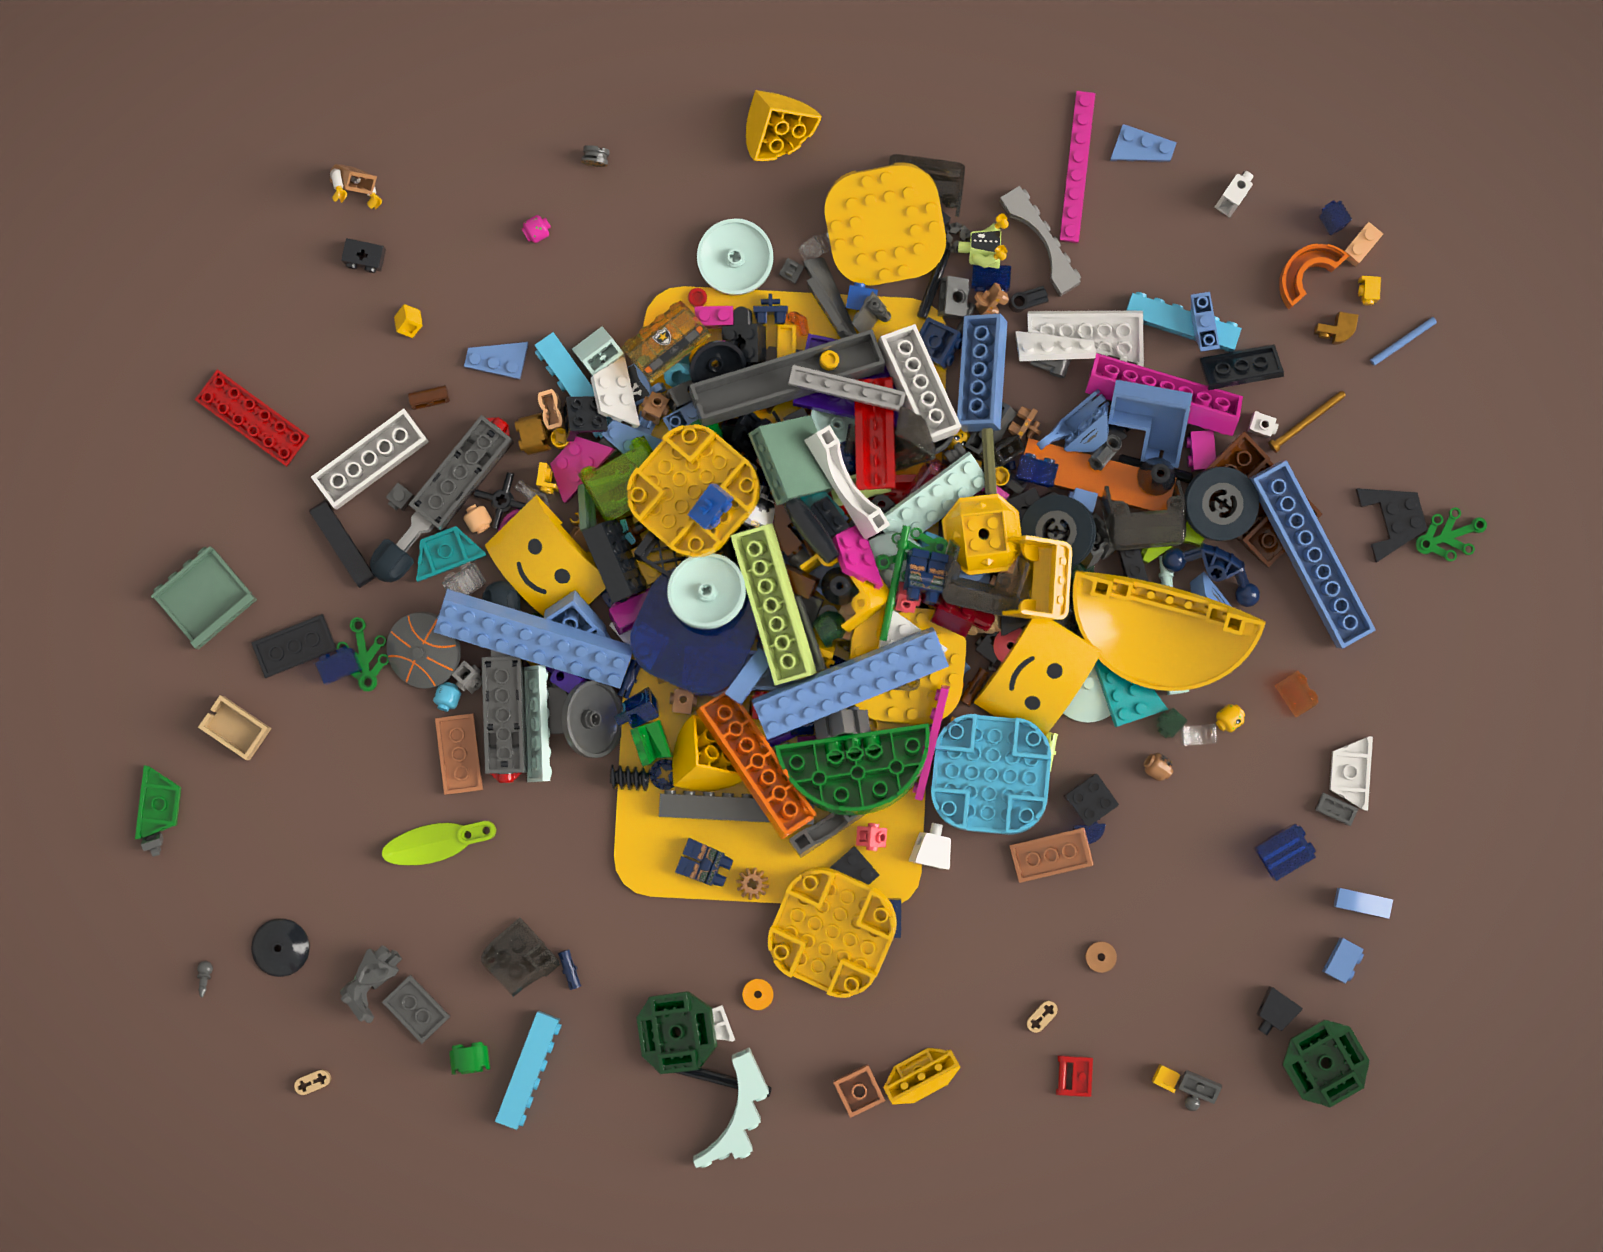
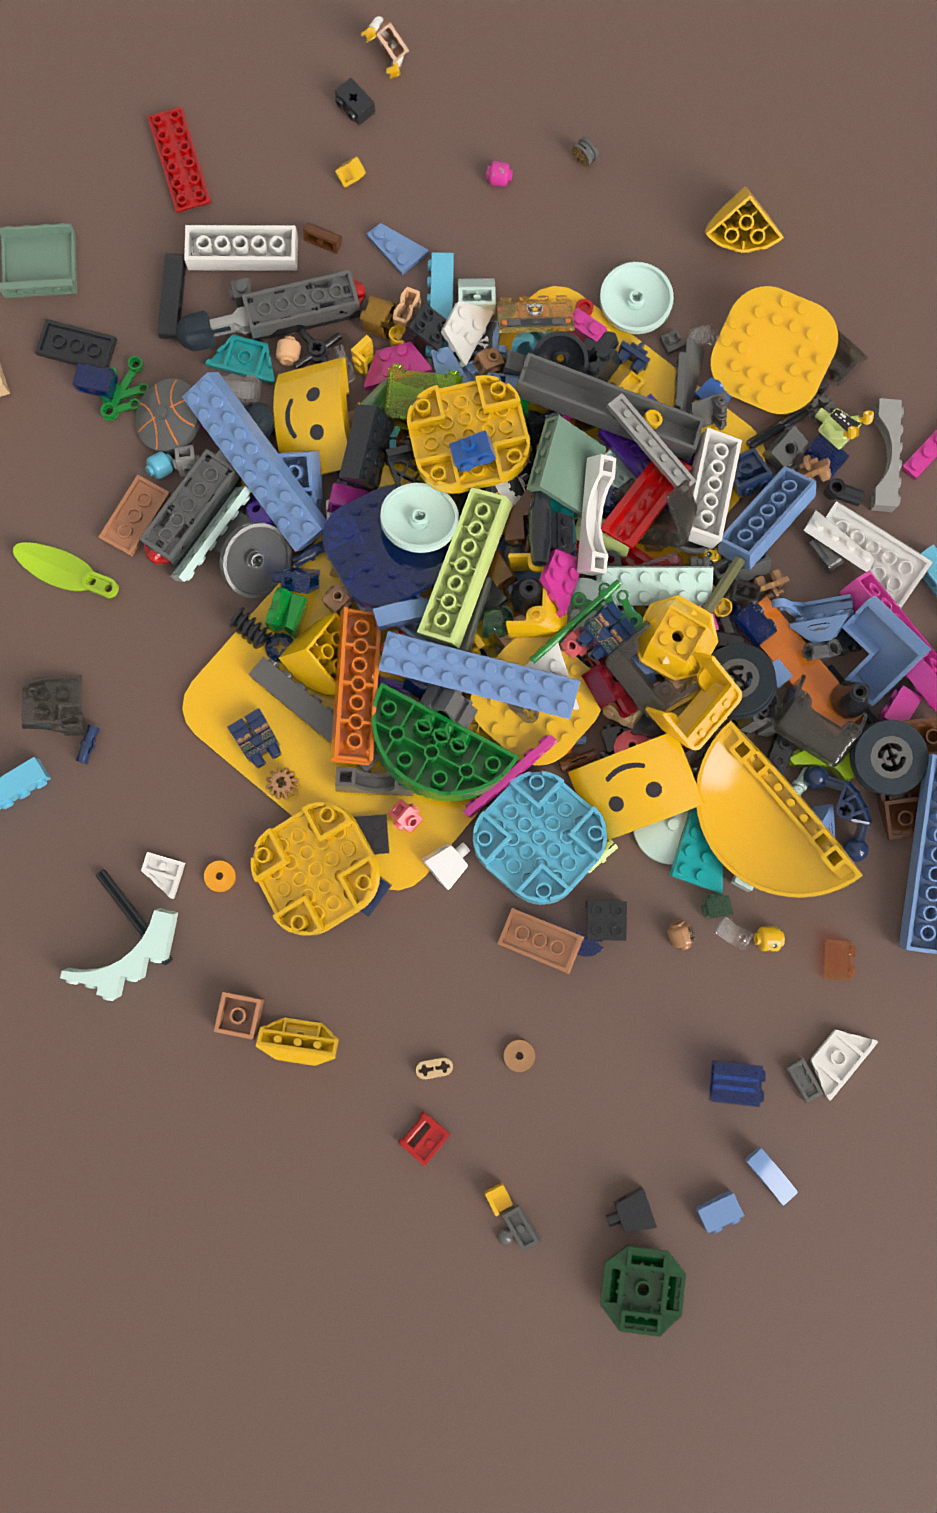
camera: 35 degrees right, 5 degrees down
(658, 1038) = (111, 853): dark green piece -> none
(800, 321) = (651, 381): clear orange arm -> none

